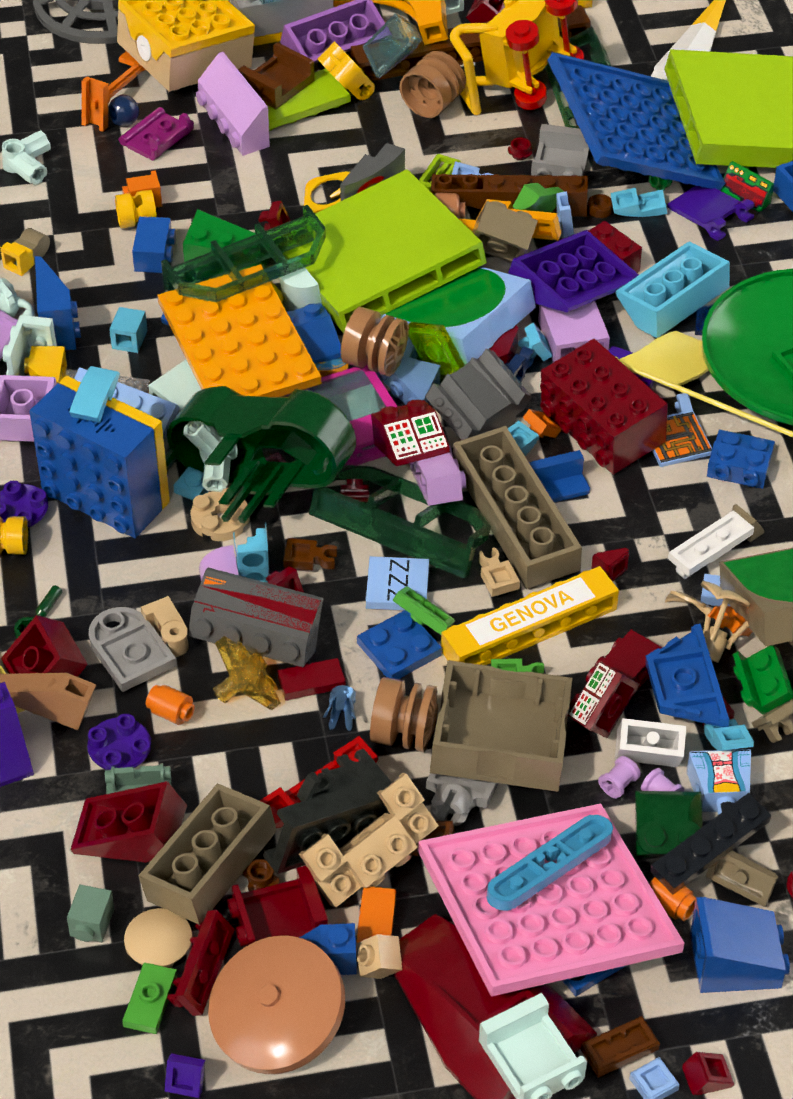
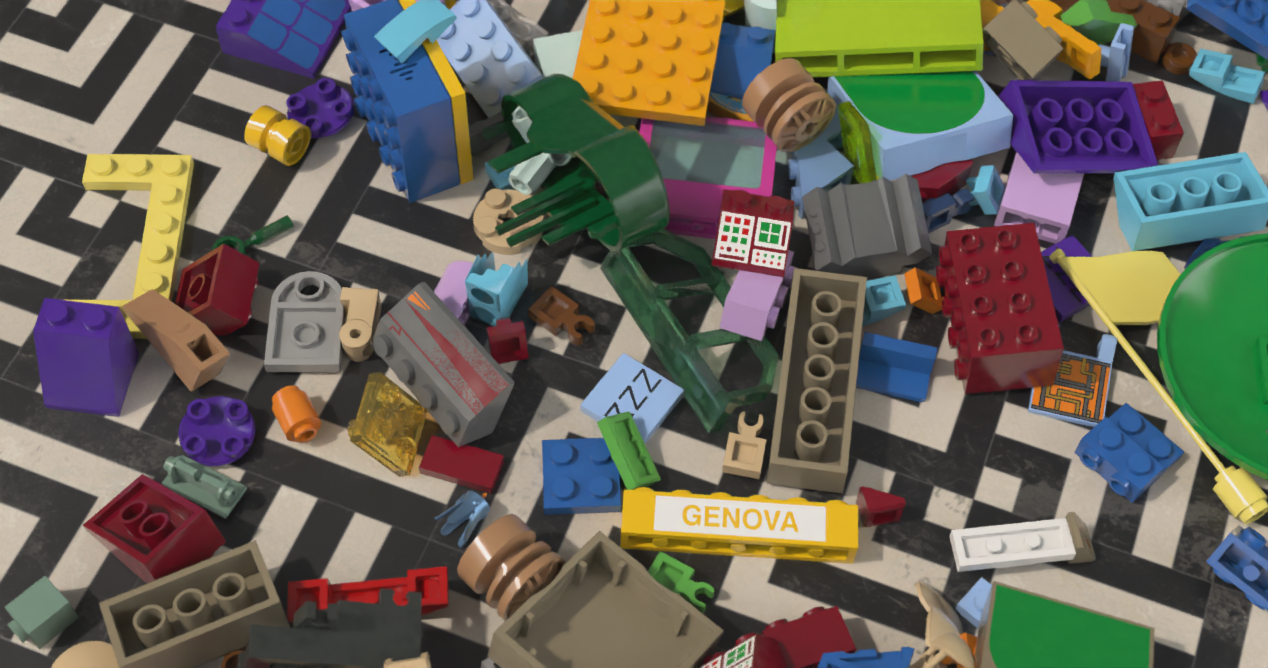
camera: 30 degrees right, 10 degrees up
(355, 489) = (664, 266): dark red plate -> none

